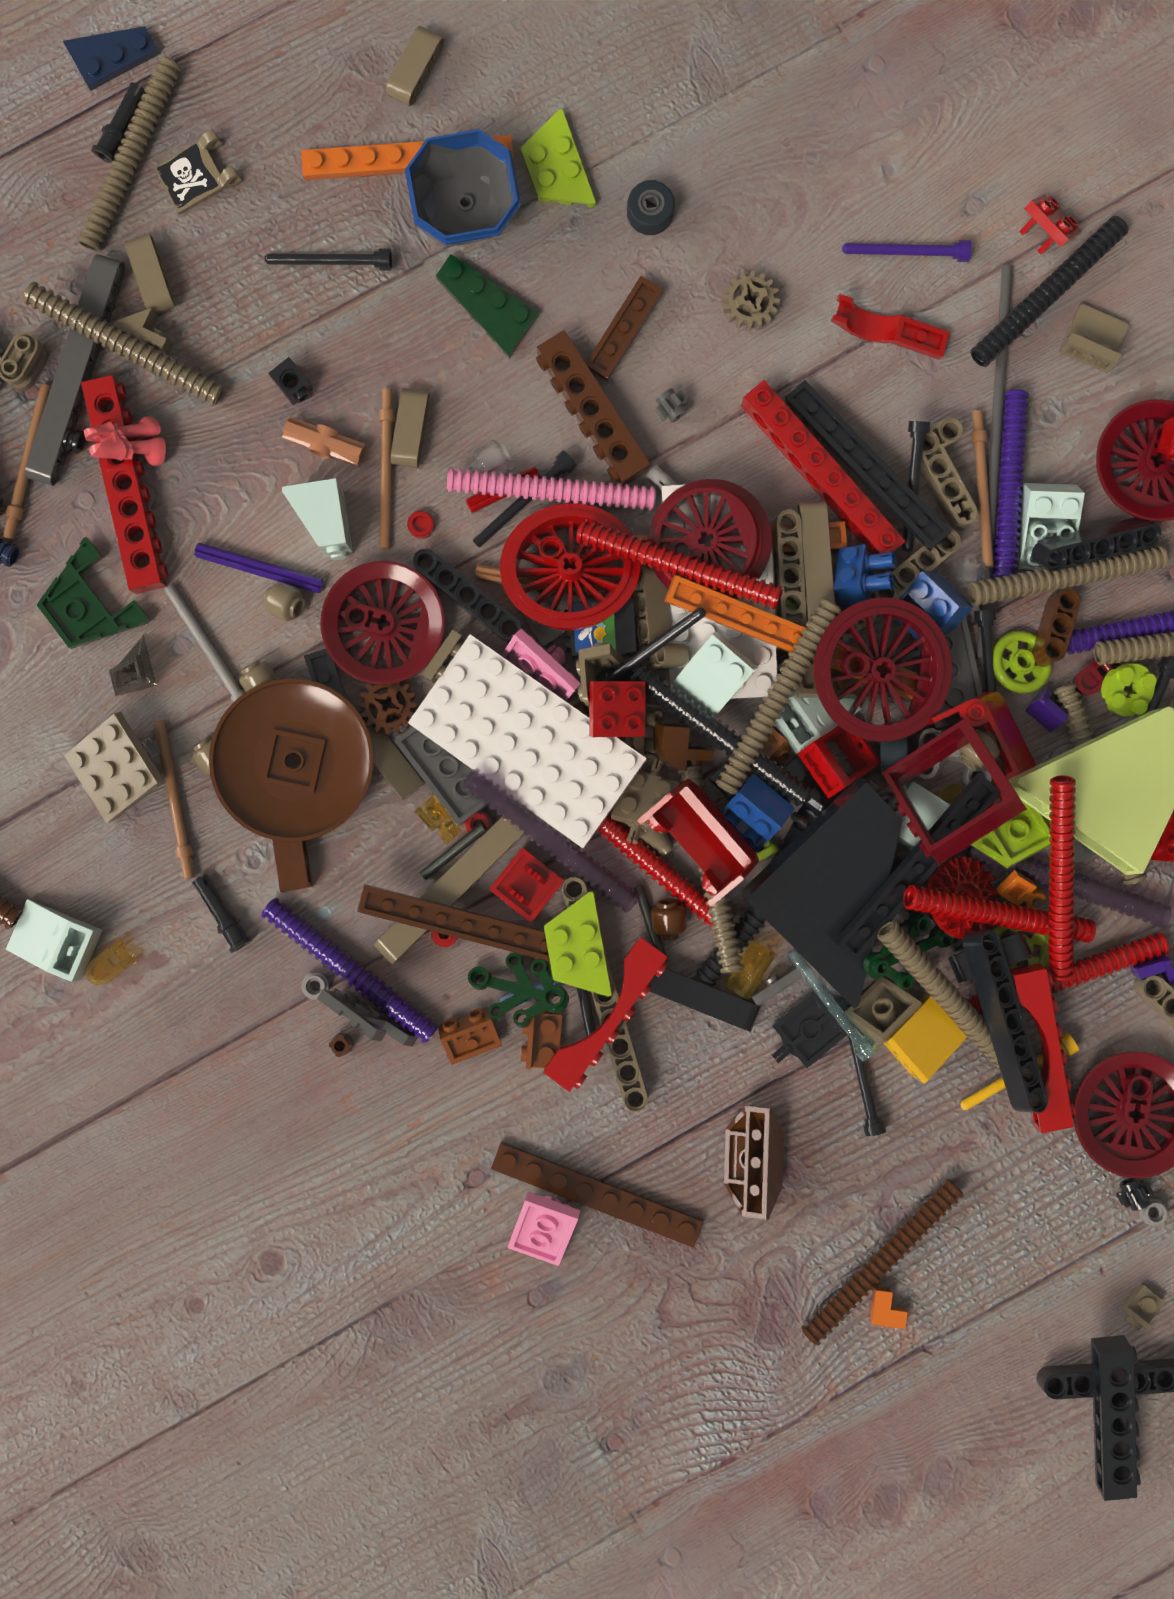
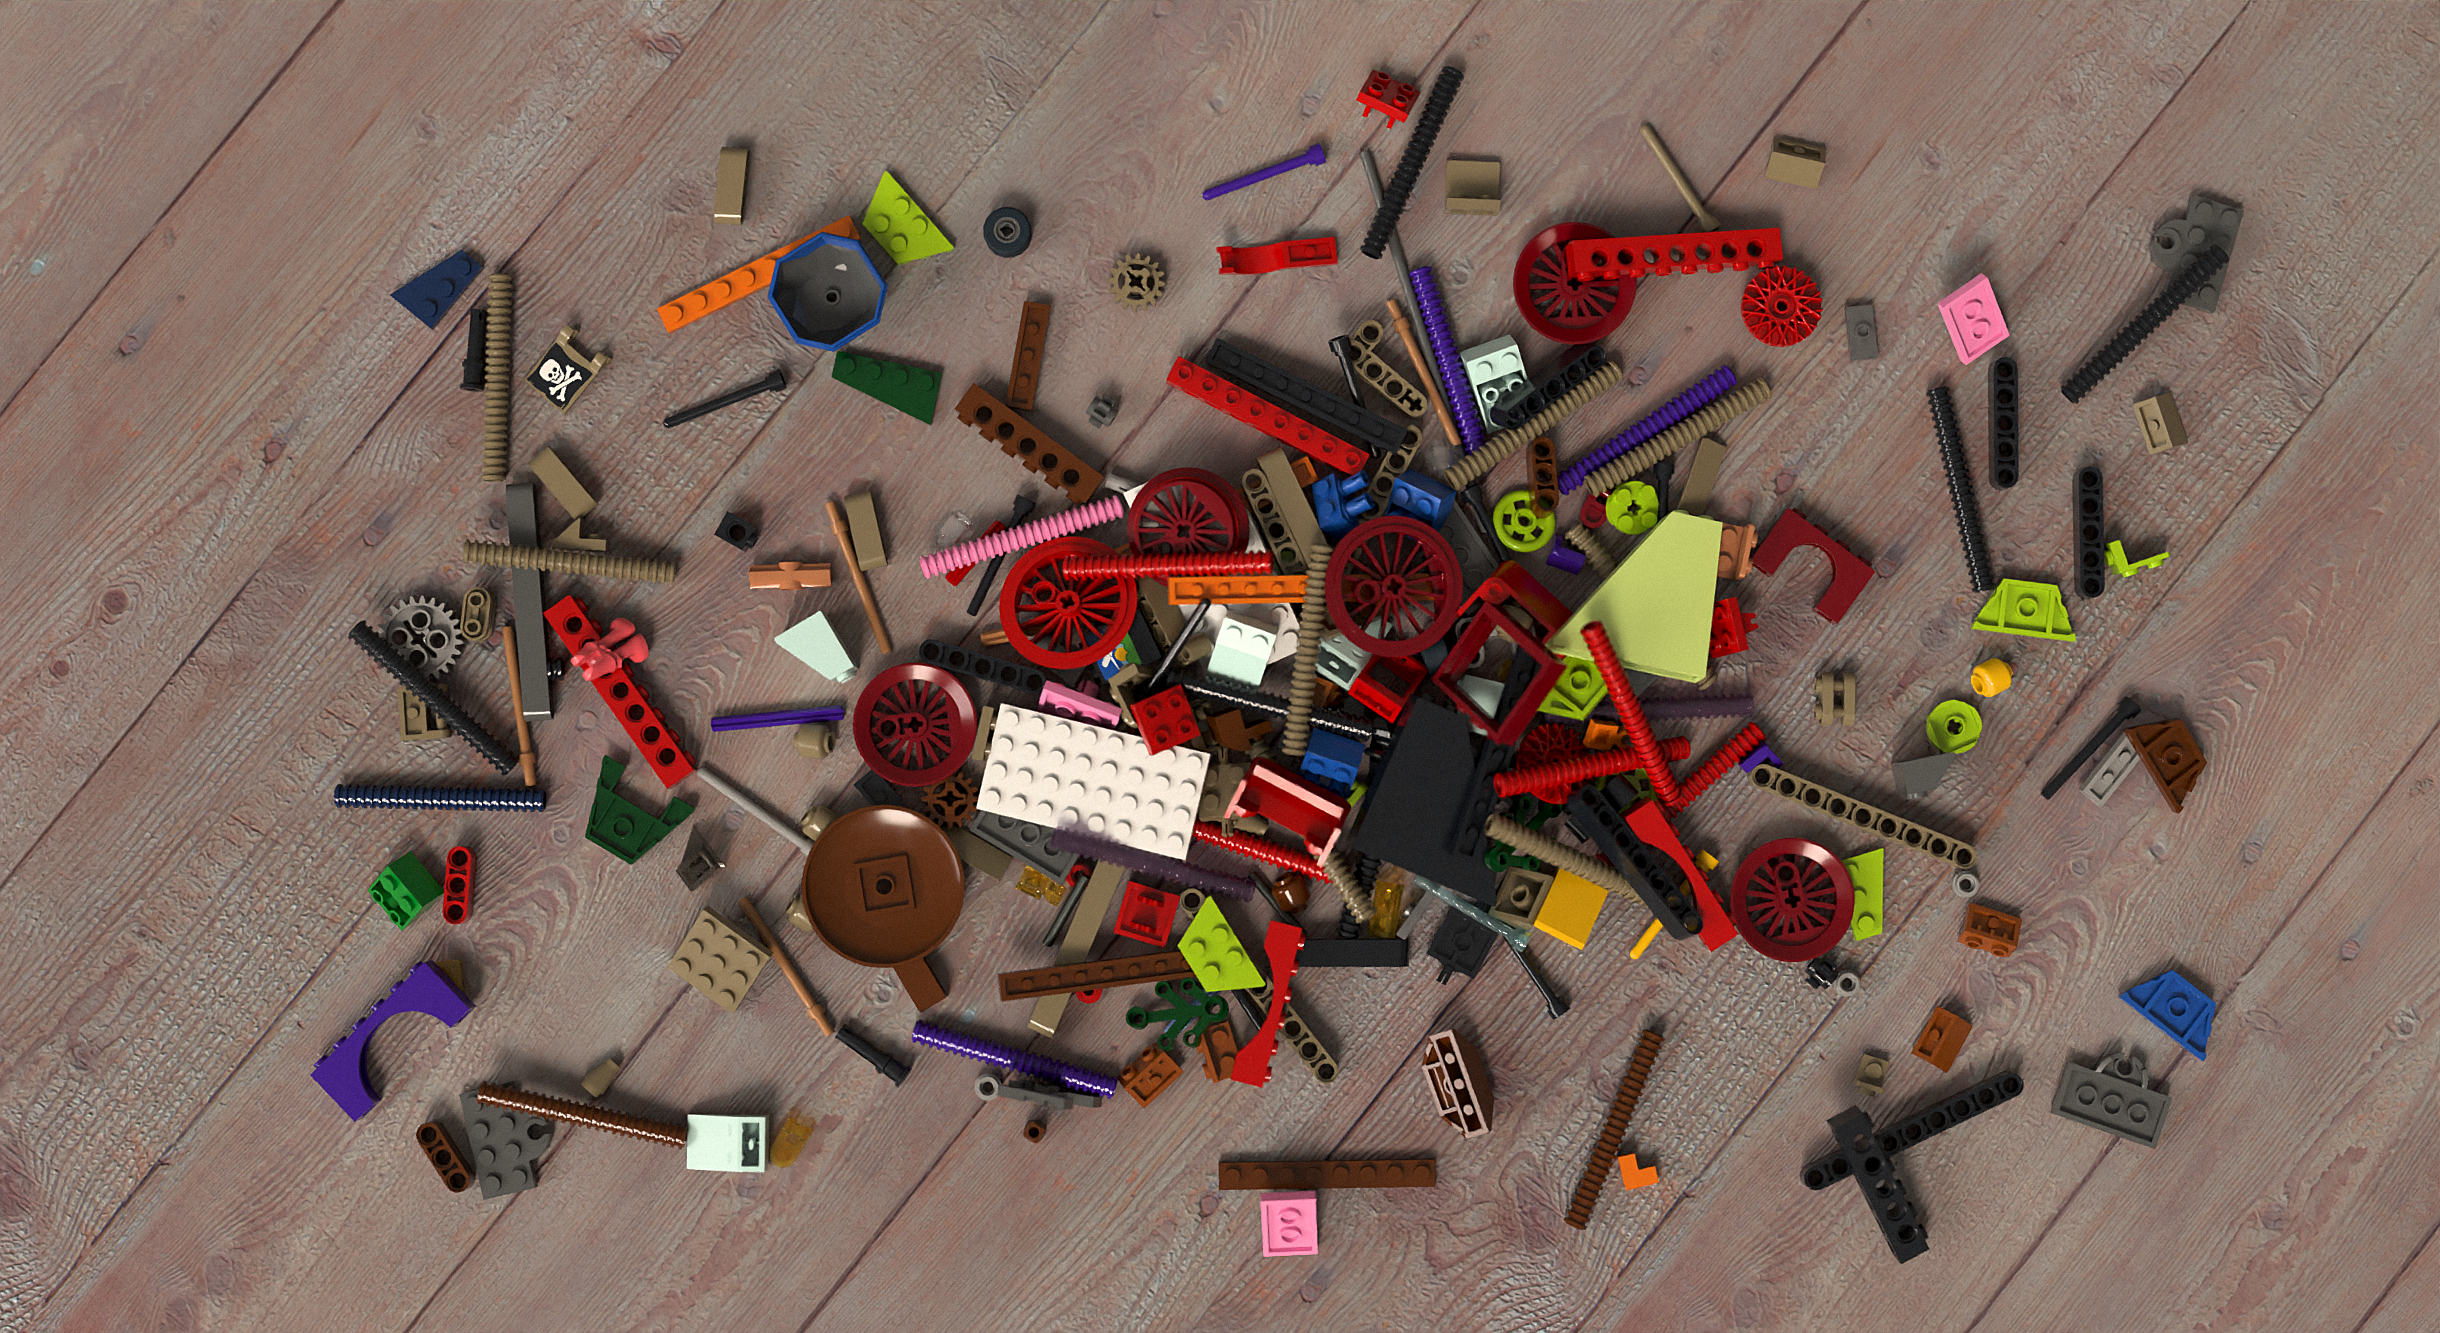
camera: 15 degrees left, 0 degrees up
(420, 525) = (912, 617): red tile -> none

